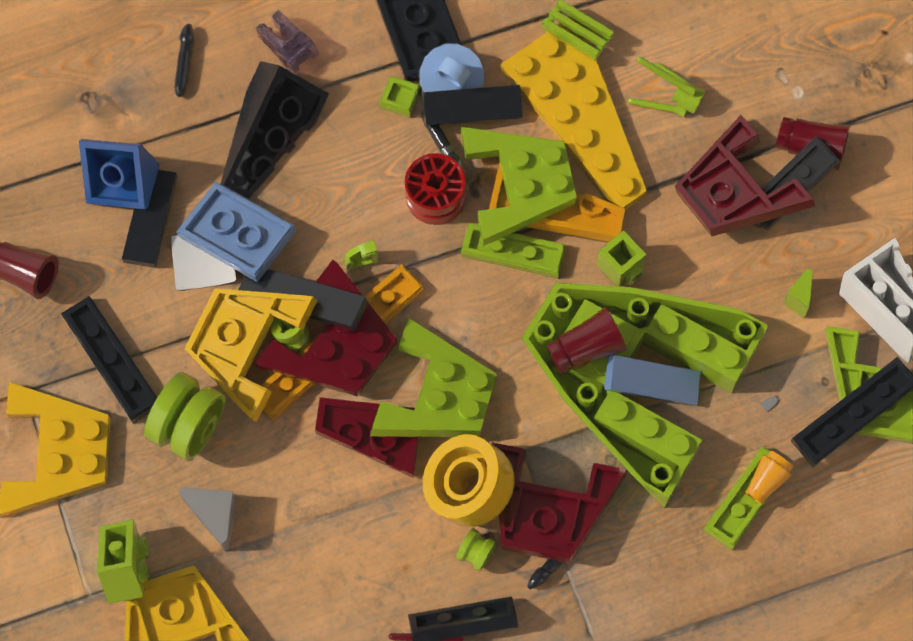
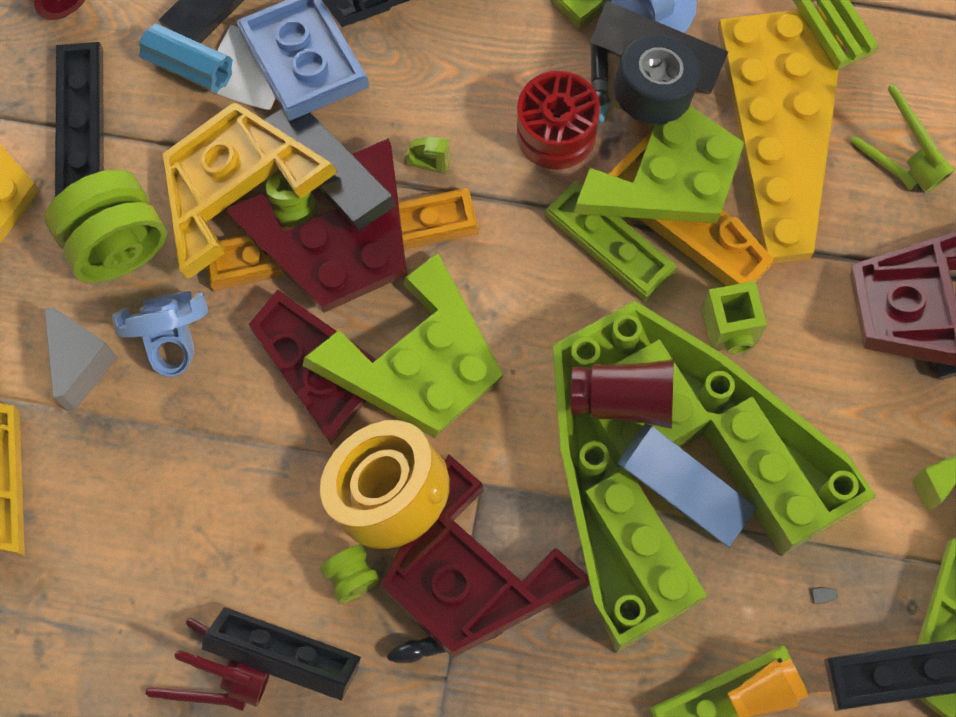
camera: 30 degrees right, 0 degrees up
(159, 275) = (185, 58): none -> dark azure axle
(258, 456) = (163, 321): none -> light blue tile
(486, 129) = (656, 79): none -> black wheel

